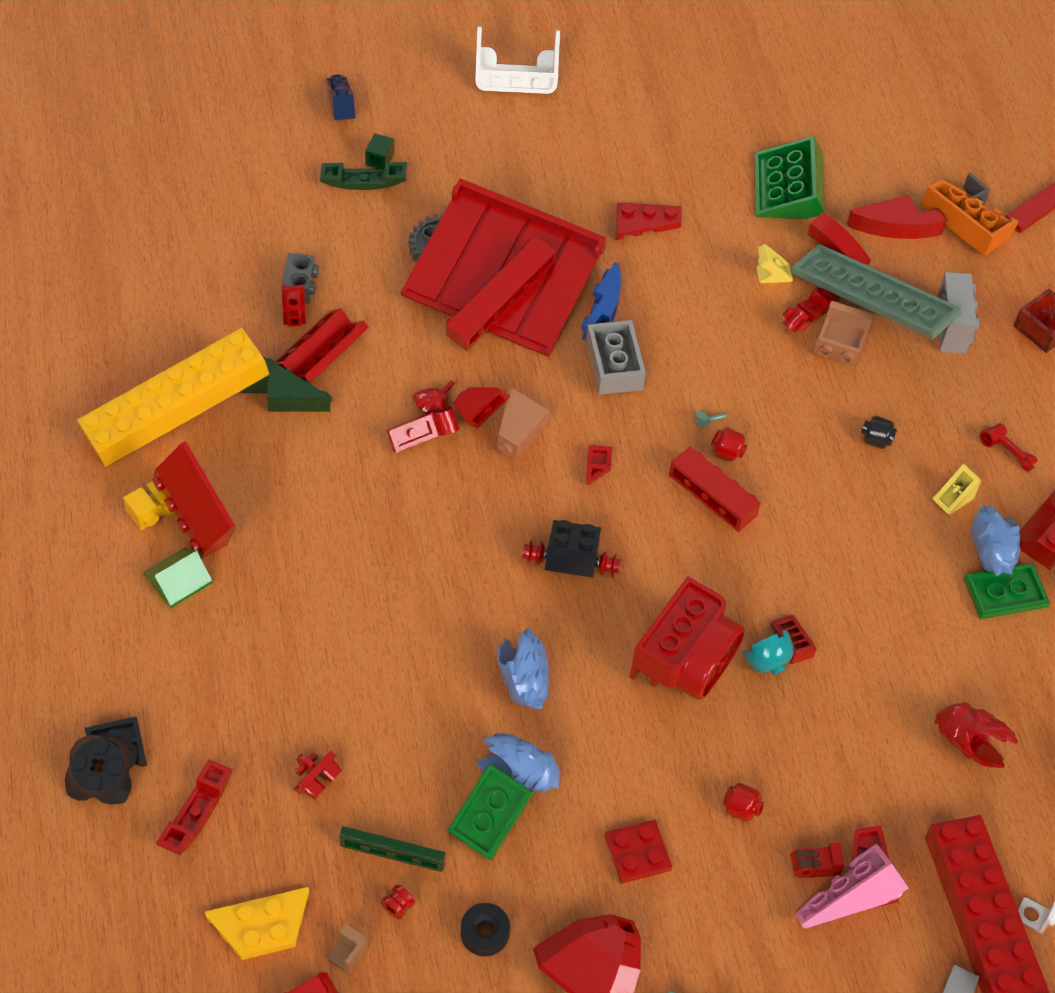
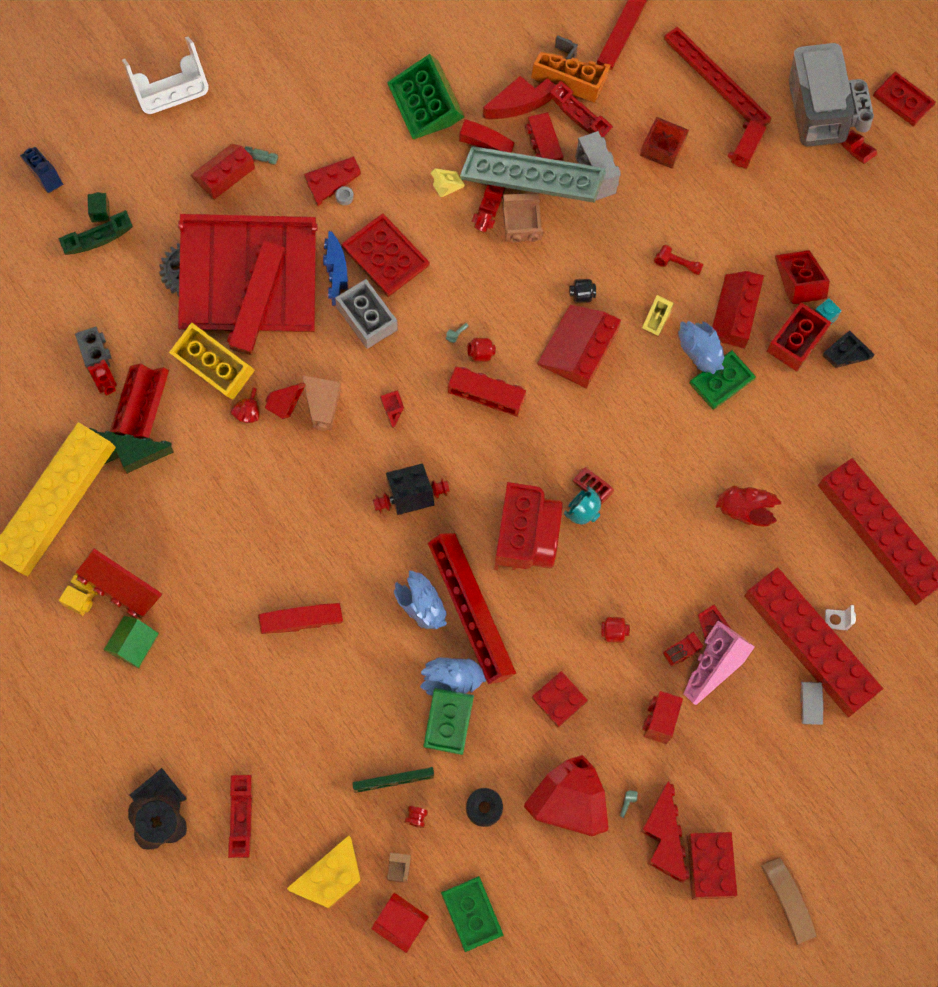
camera: 25 degrees left, 15 degrees up
(326, 767) = (315, 740): red hips -> none
(376, 629) = (300, 618): none -> red slope
(419, 335) = (212, 361): none -> yellow brick
(423, 428) = (251, 438): plate -> none
(532, 169) = (224, 170): none -> red slope
(579, 168) = (262, 155): none -> sand green axle
(581, 705) = (471, 608): none -> red brick
(651, 240) = (344, 195): none -> light grey tile
(667, 311) = (385, 254): none -> red plate
(754, 922) = (663, 717): none -> red brick
(850, 486) = (580, 344): none -> red slope
(906, 261) = (543, 137): none -> red brick
(957, 254) = (578, 112): none -> red slope

